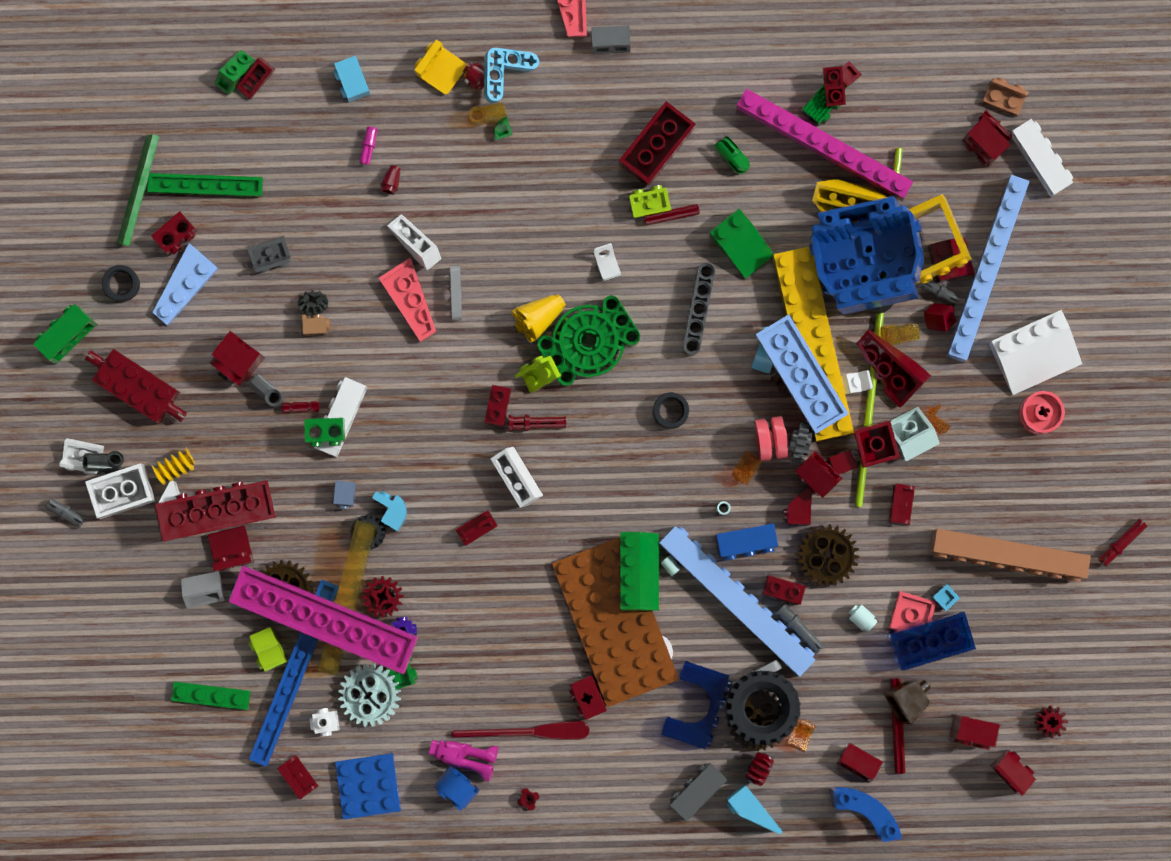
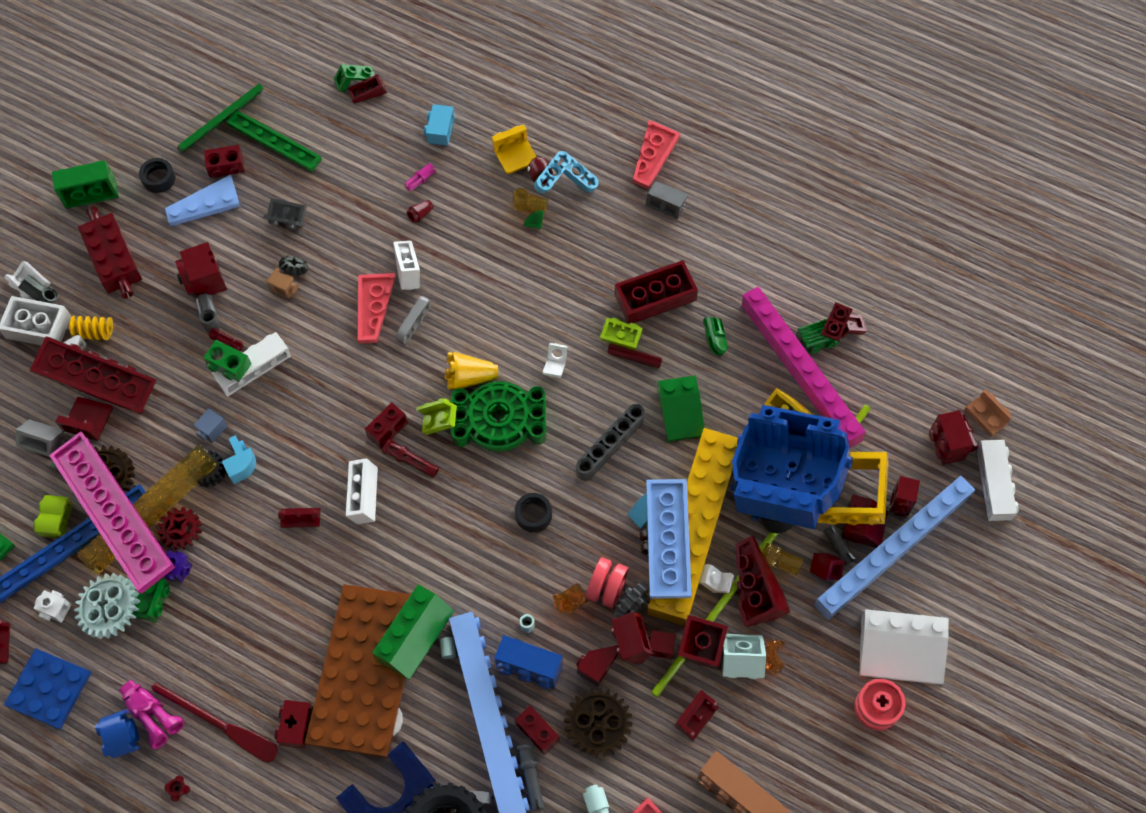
camera: 30 degrees right, 20 degrees down
(973, 220) = (904, 496): none -> dark red brick

